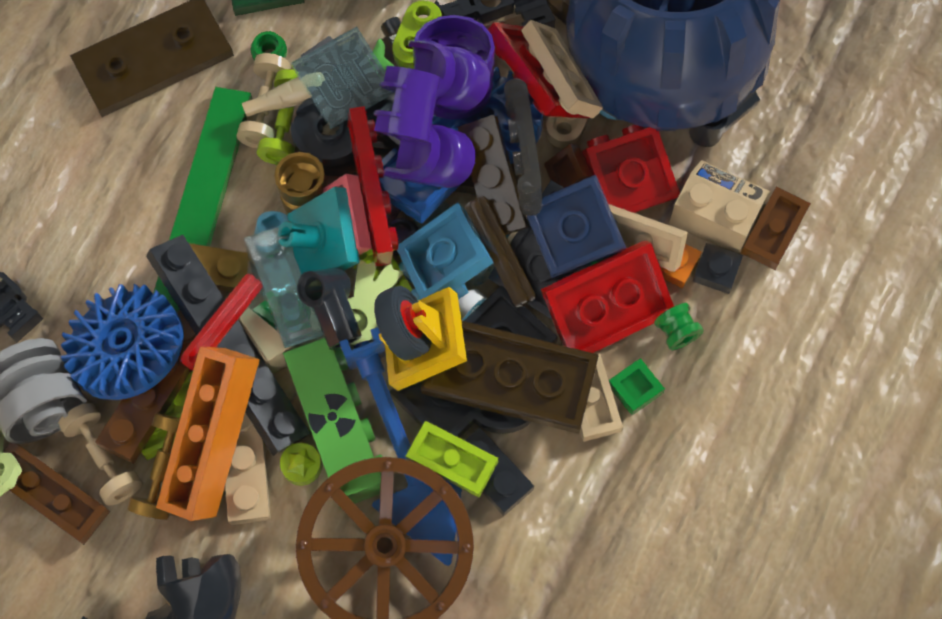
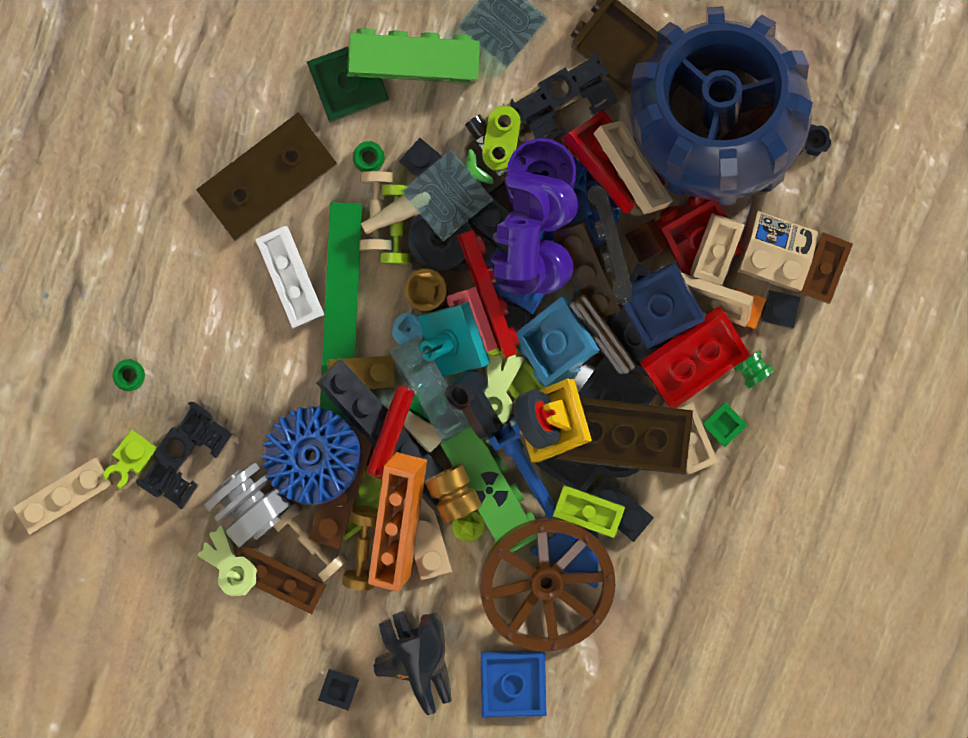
camera: 10 degrees left, 20 degrees up
(150, 155) = (289, 277): none -> white plate
(284, 406) = (454, 495): none -> pearl gold wheel
(650, 179) = (717, 249): none -> tan plate
(778, 87) = (823, 143): none -> black plate

